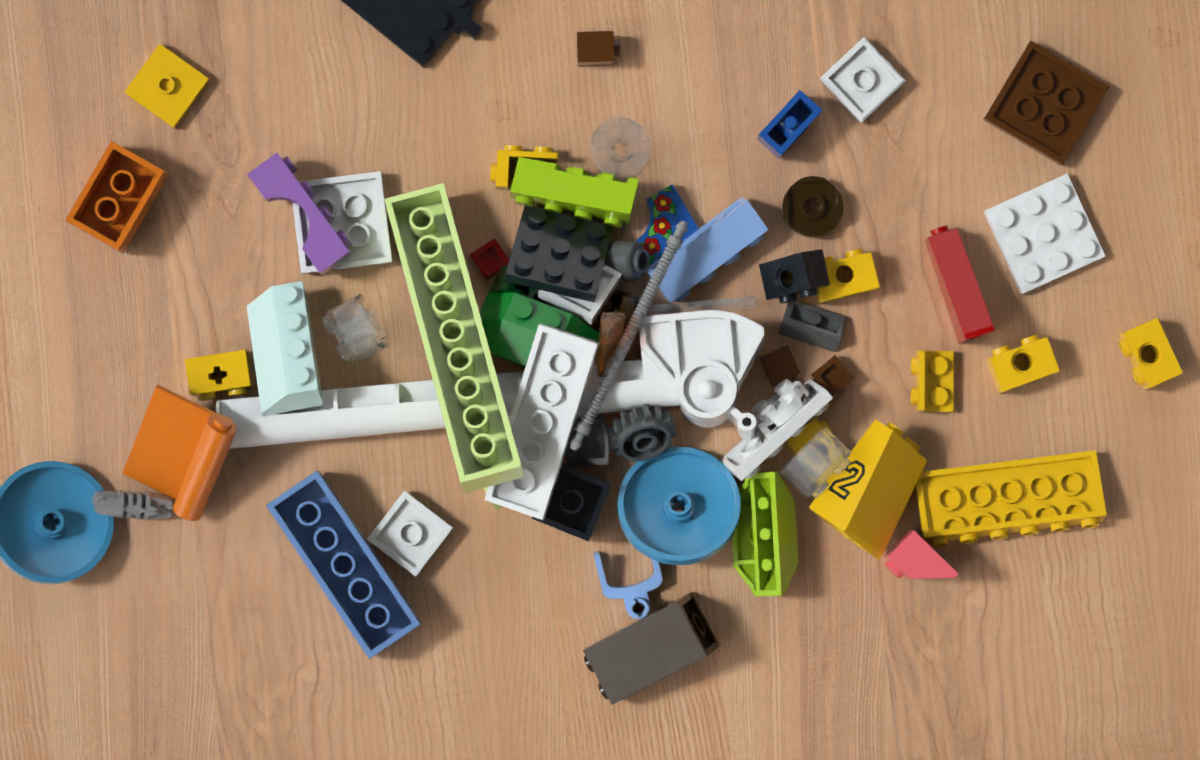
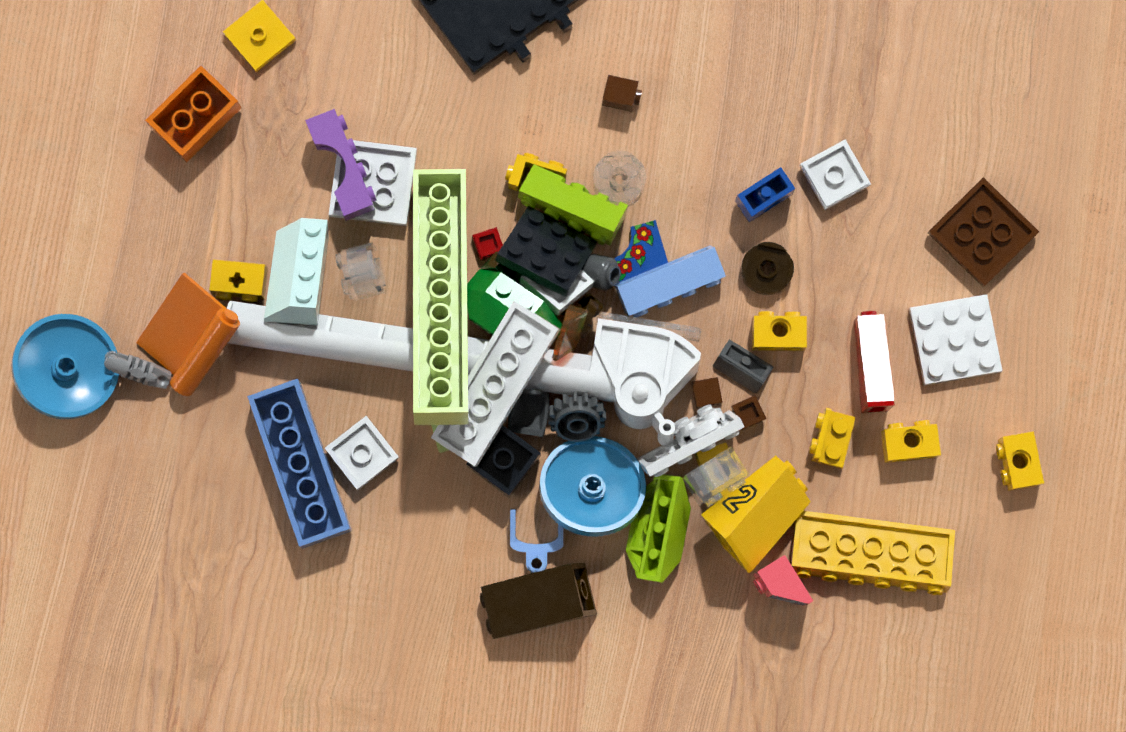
camera: 15 degrees right, 5 degrees down
(583, 427) = (644, 264): light grey hose -> none
(794, 275) = (738, 319): black brick -> none

